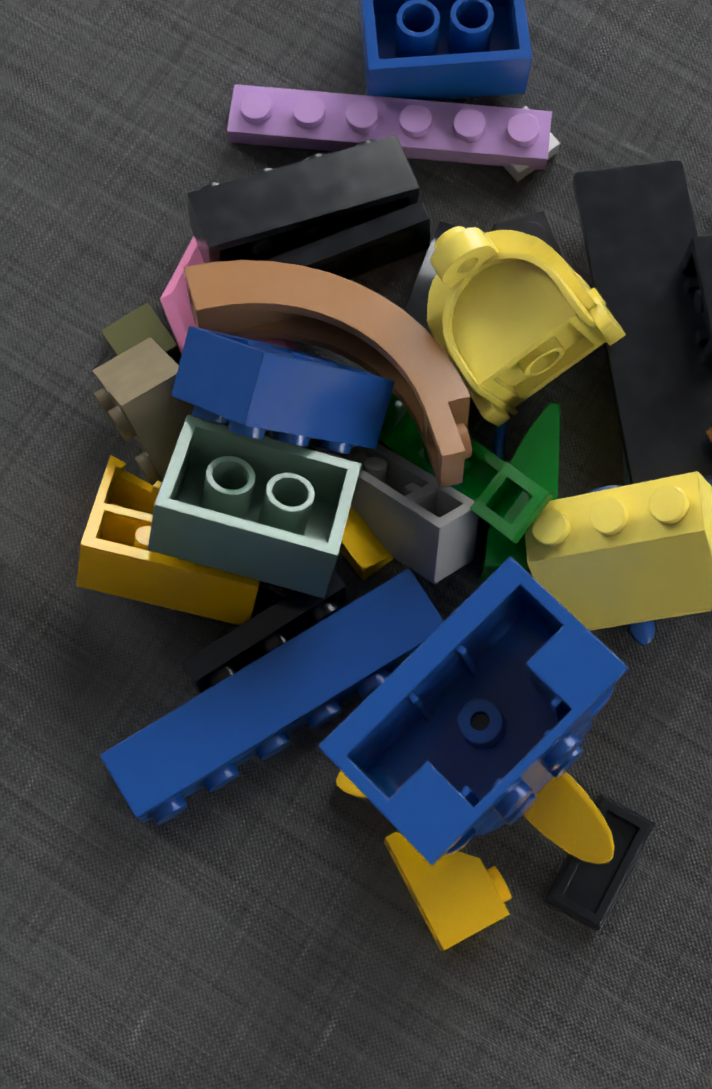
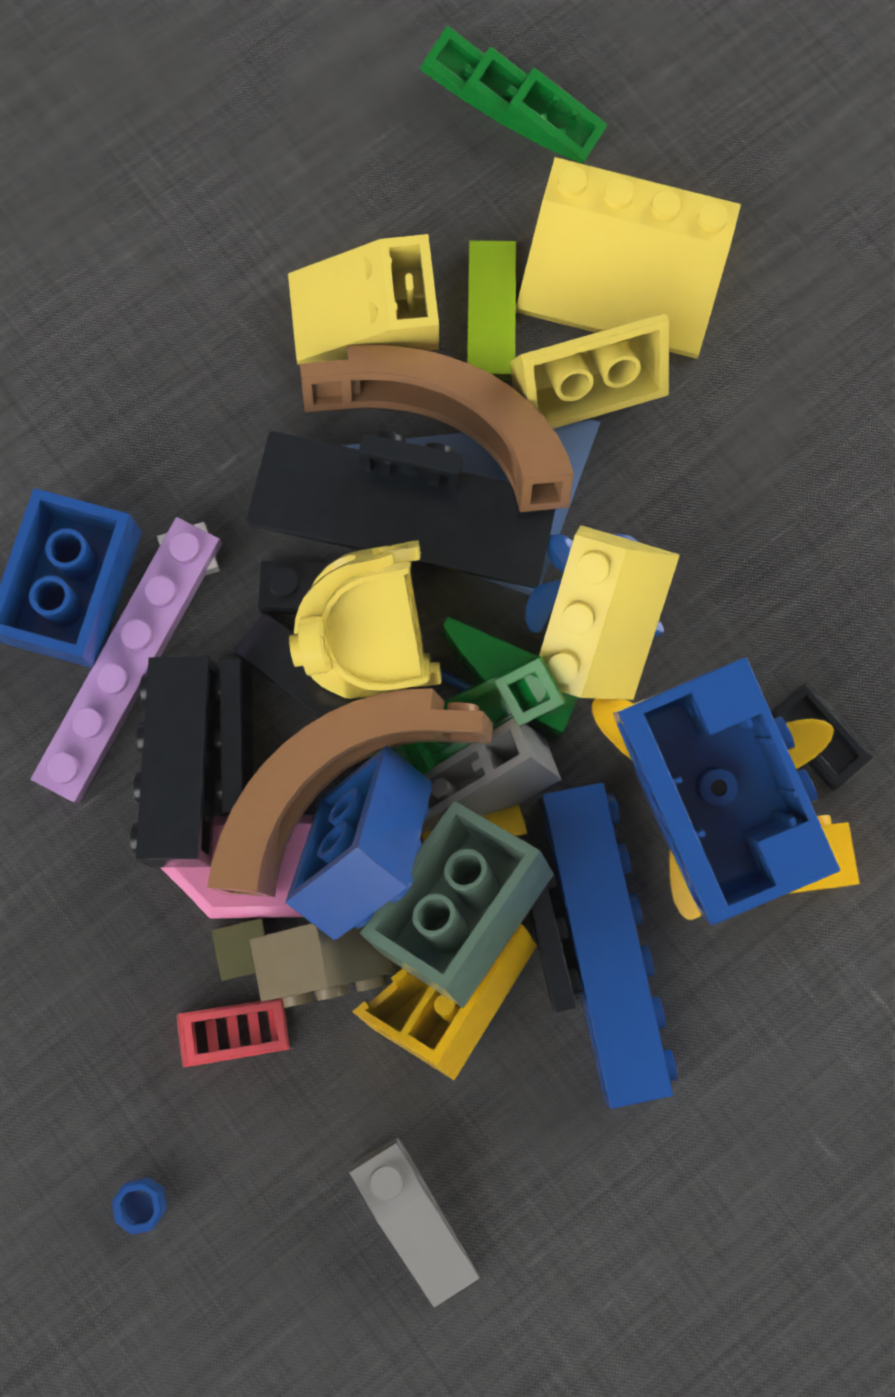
camera: 70 degrees left, 5 degrees up
(34, 321) = (188, 1041): none -> coral slope

